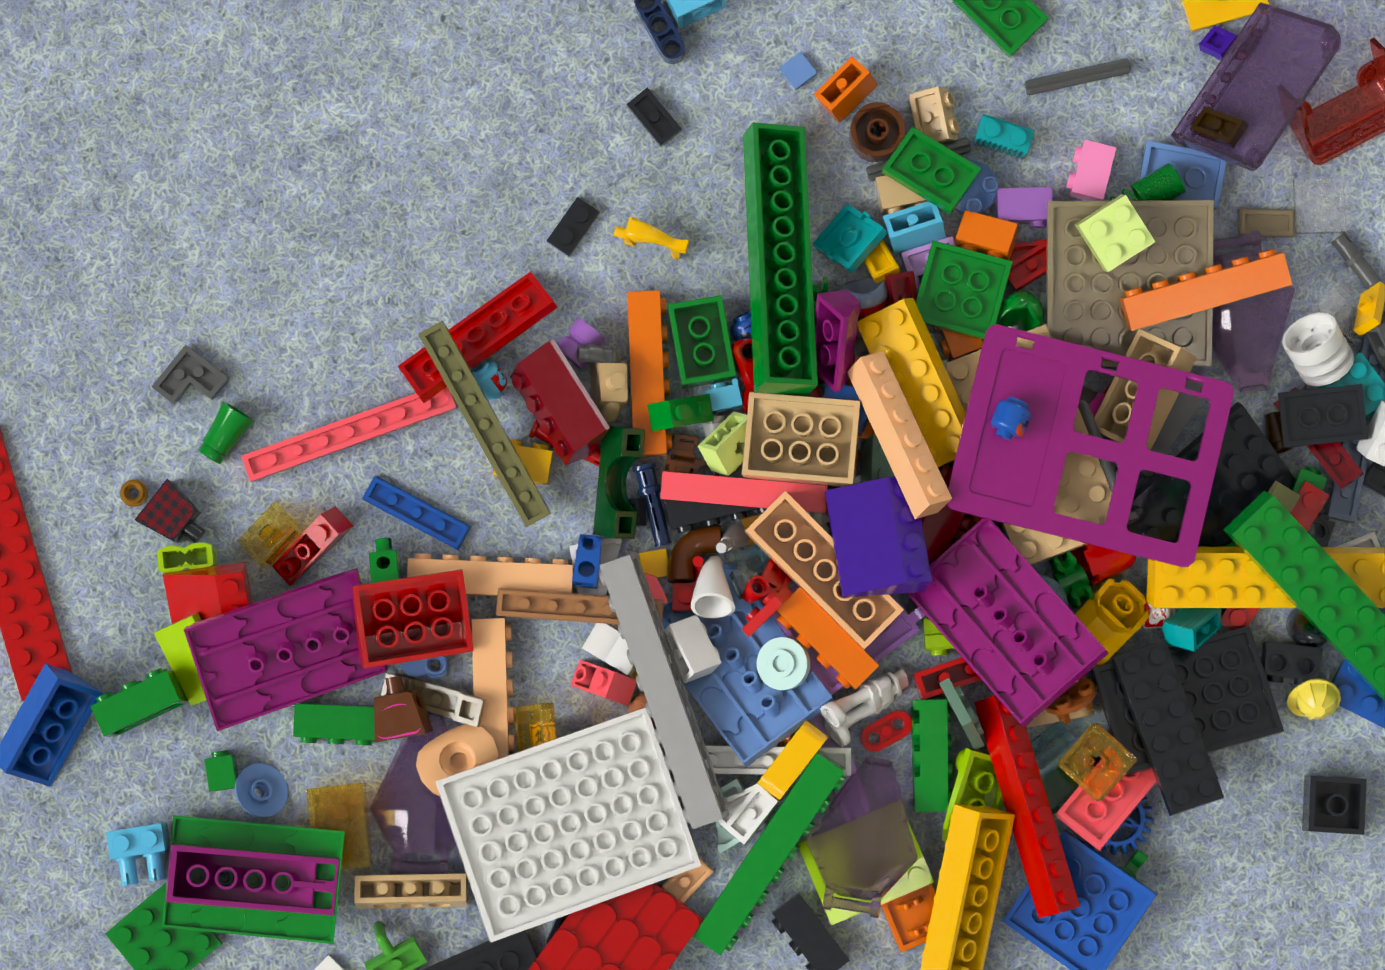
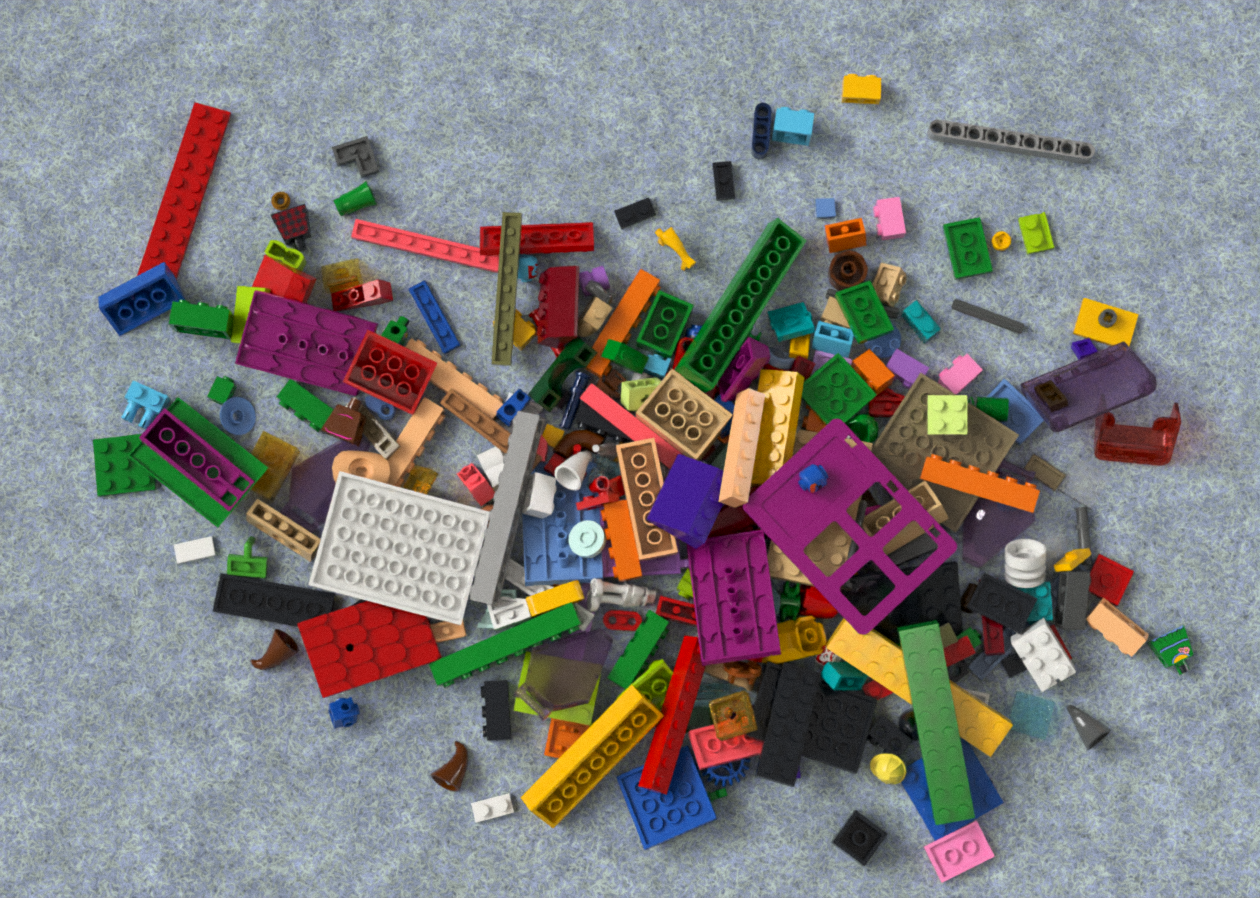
camera: 25 degrees right, 5 degrees down
(884, 33) = (890, 218): none -> bright pink brick
(963, 712) = (673, 636): sand green plate -> none

